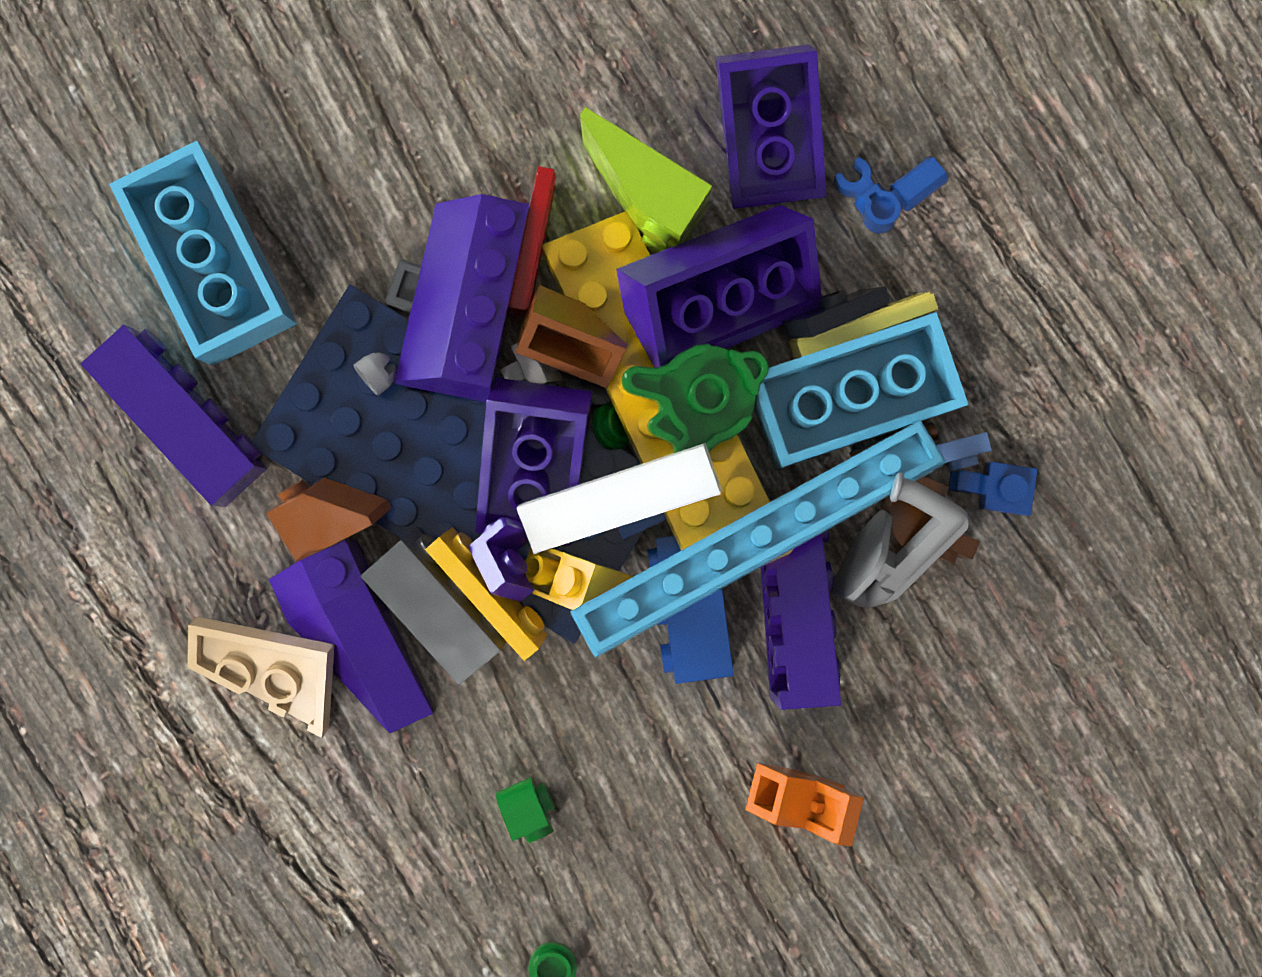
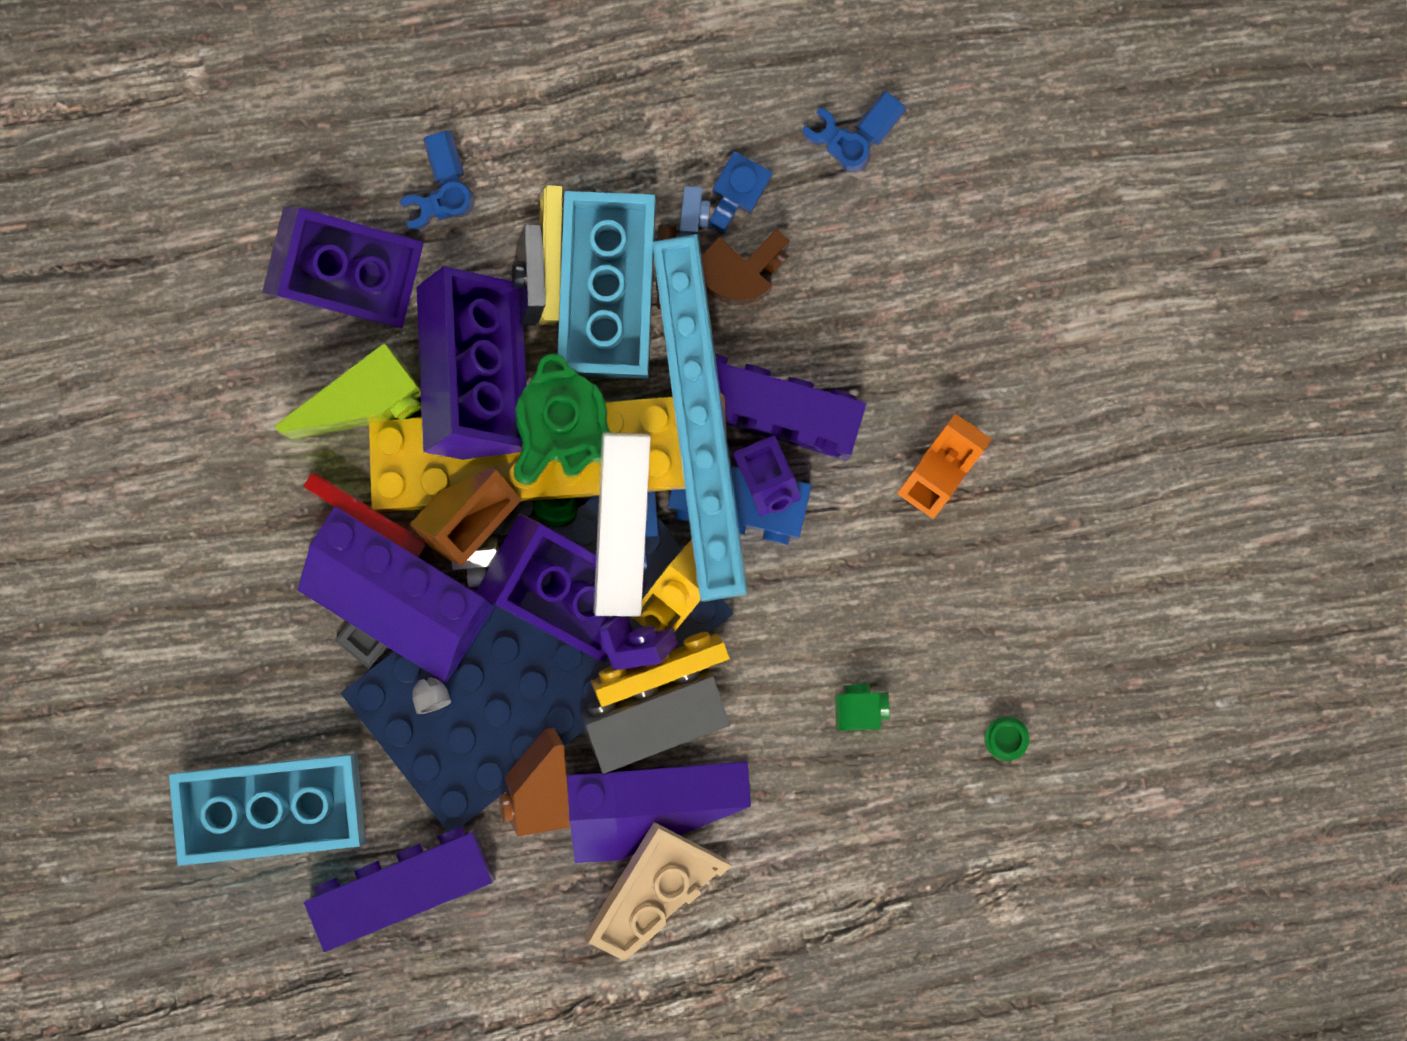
camera: 65 degrees left, 0 degrees up
(725, 629) = (767, 476): none -> dark purple bracket
(893, 572) = (775, 307): light grey piece -> none
(1086, 586) = (853, 149): none -> blue bar

